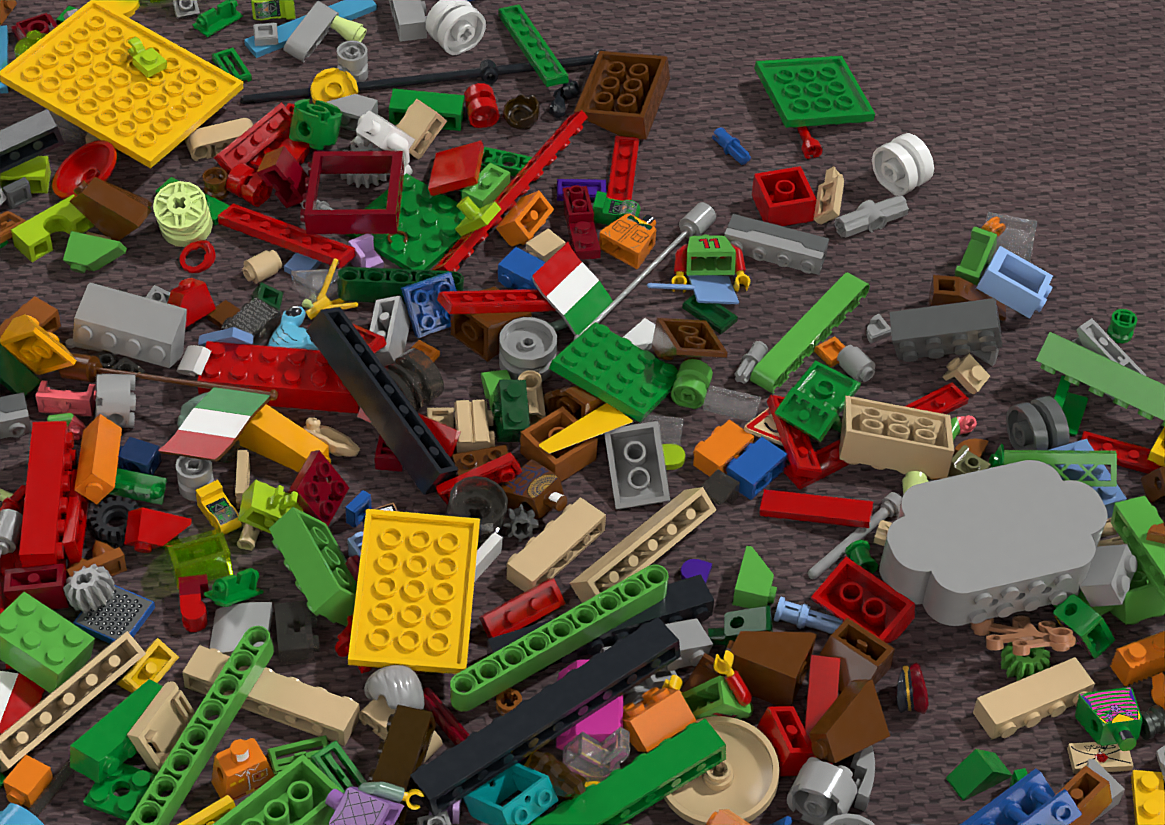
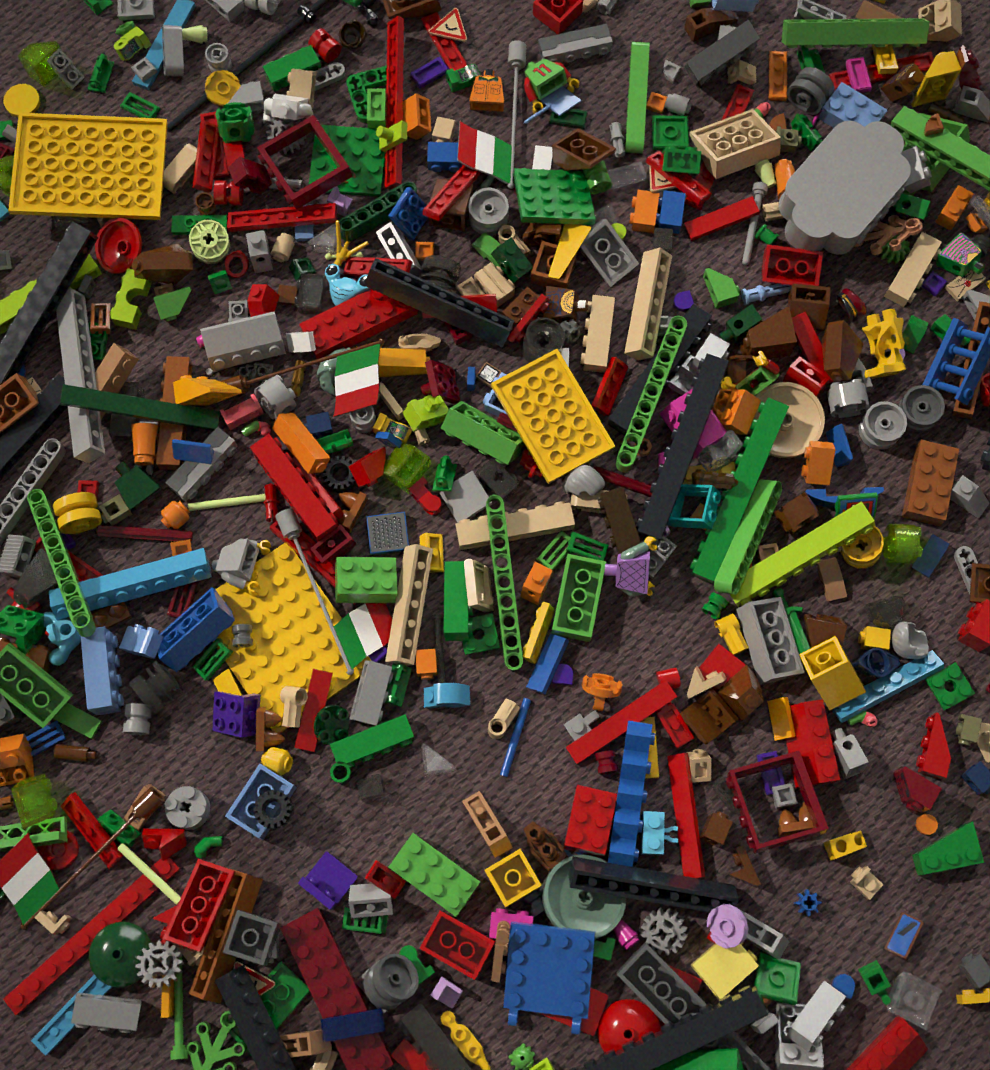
camera: 30 degrees left, 25 degrees up
(89, 588) = (365, 535): light grey gear -> none
(146, 61) = (95, 141): lime plate -> none
(160, 401) = (297, 379): none -> pearl gold axle
(162, 262) = (219, 282): none -> green tile
(204, 515) = (388, 439): none -> blue tile
(229, 335) = (307, 315): medium blue tile -> none
(231, 245) = (259, 247): none -> light grey torso
(456, 168) = (347, 104): red tile -> none
(459, 130) = (334, 76): none -> light grey beam
(580, 222) = (449, 99): dark red slope -> none
(640, 157) = (450, 27): none -> piece
(929, 753) = (889, 337): none -> yellow hips
(1019, 390) = (777, 76): none -> orange tile
(1054, 733) = (934, 283): none -> dark purple tile
(1070, 457) = (843, 106): bright green fence -> none
(1123, 442) = (858, 74): none -> dark pink tile

